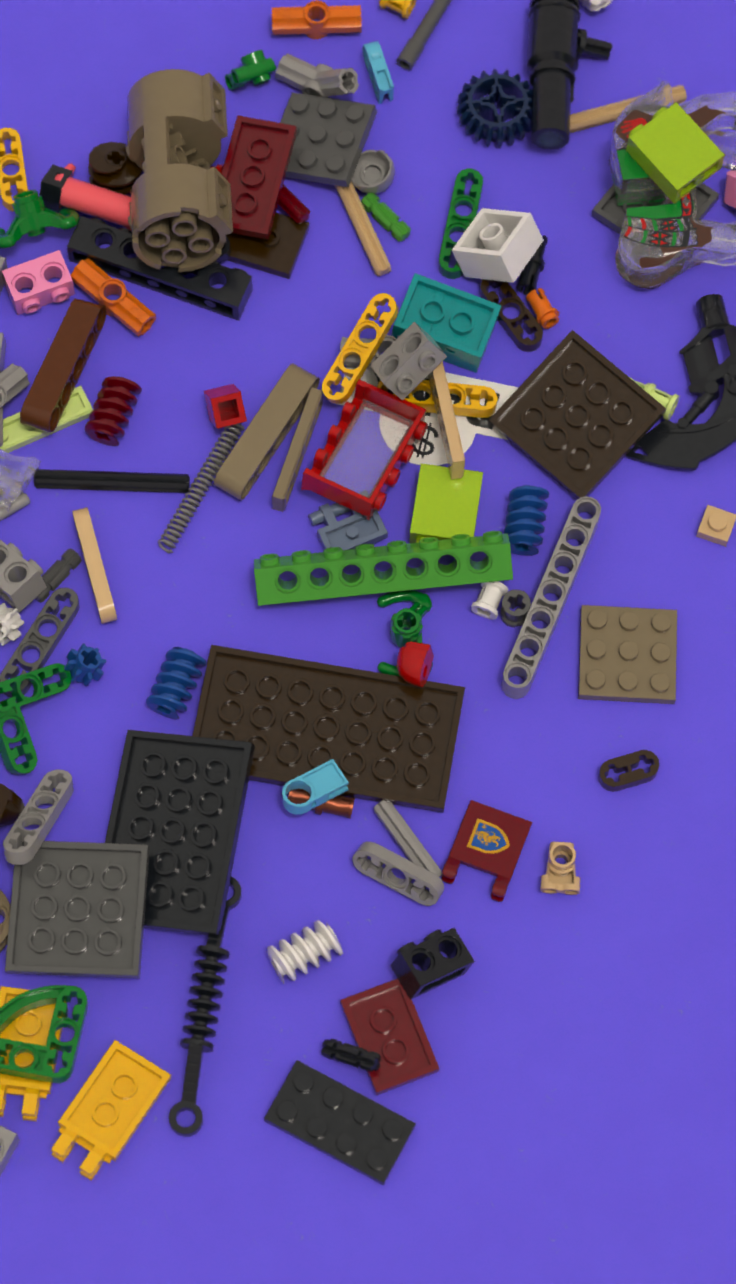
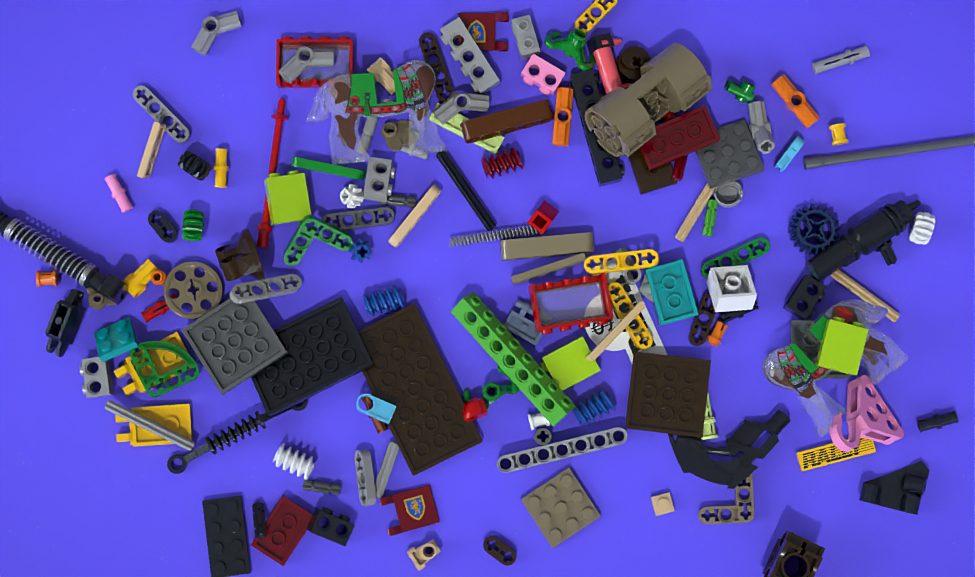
camera: 50 degrees right, 15 degrees up
(103, 1110) = (149, 425): none -> light grey axle
(367, 943) = (322, 487): none -> dark grey axle
(408, 361) = (630, 292): light grey brick -> none
(569, 176) = (801, 294): none -> black brick

